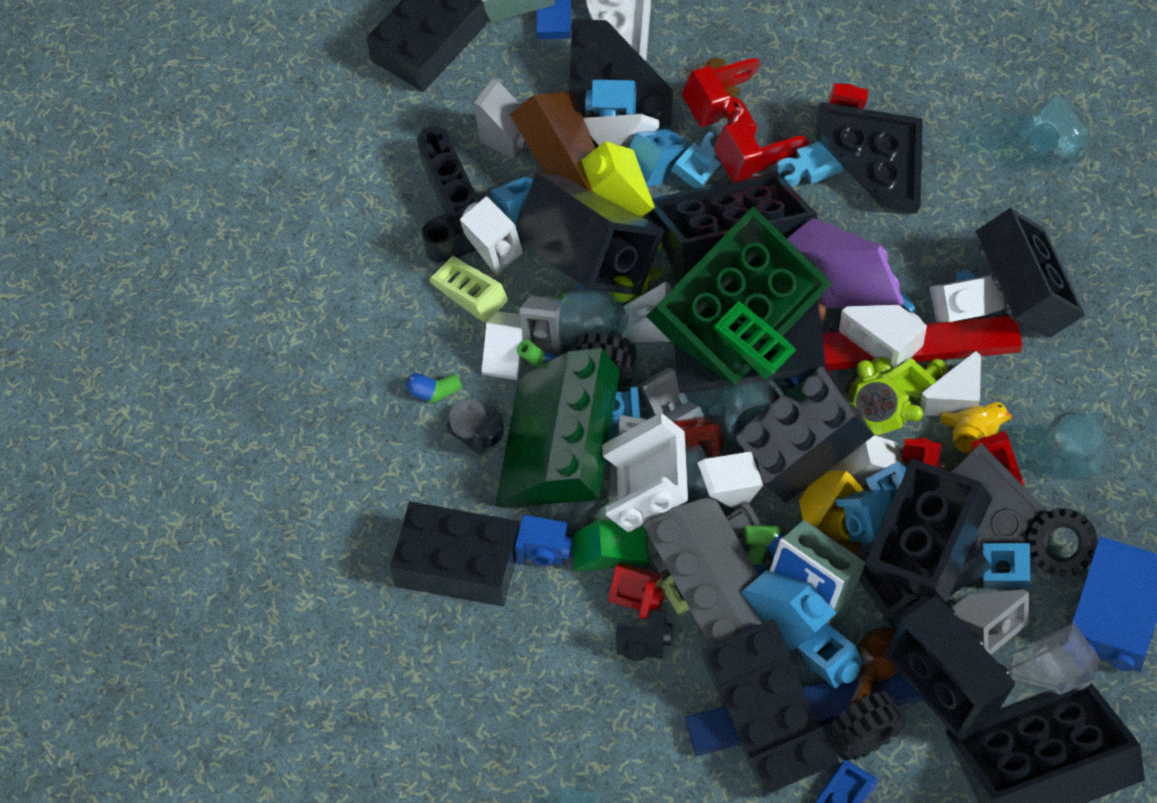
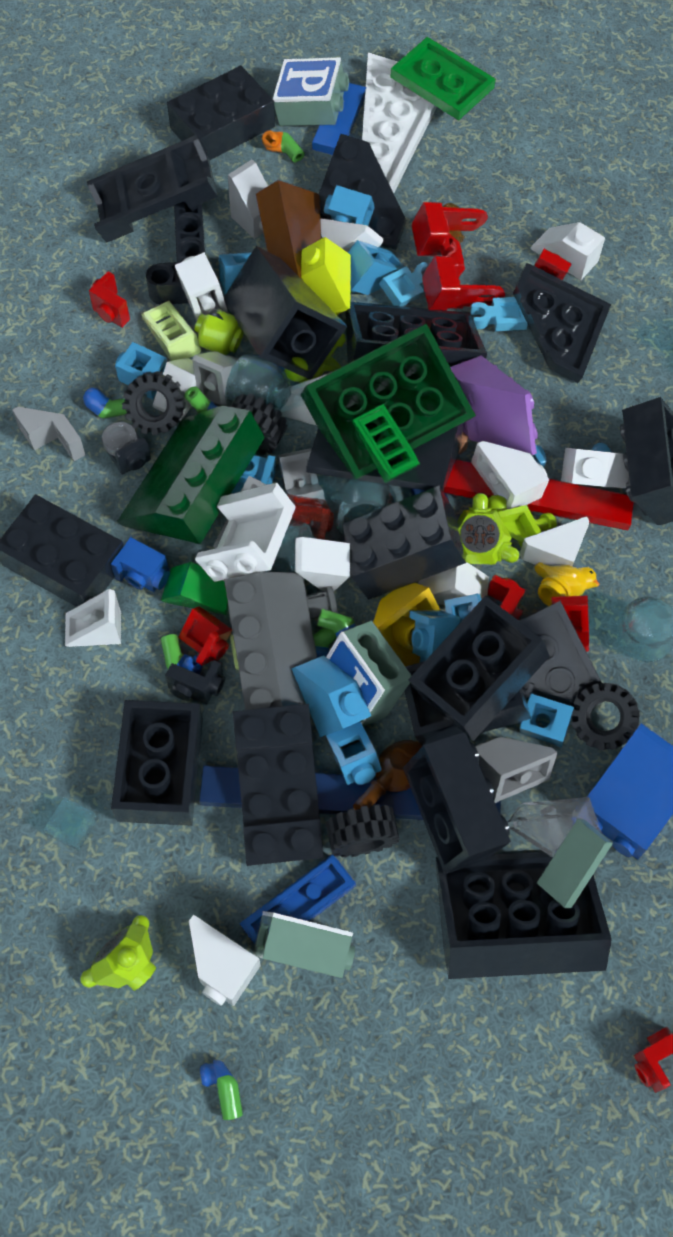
camera: 10 degrees right, 5 degrees up
(377, 431) = (43, 427): none -> light grey slope
(390, 138) = (152, 185): none -> black piece
(391, 279) = (107, 302): none -> red bracket
(457, 338) = (138, 361): none -> dark azure brick
(488, 391) = (144, 420): none -> black tyre
(504, 42) = (282, 143): none -> arm
(518, 611) = (94, 622): none -> white slope
(523, 273) = (218, 331): none -> lime head
(610, 619) = (173, 654): none -> bright green arm
(642, 725) = (157, 763): none -> black brick
(860, 65) = (574, 244): none -> white slope
(1081, 687) = (574, 863): none -> sand green tile

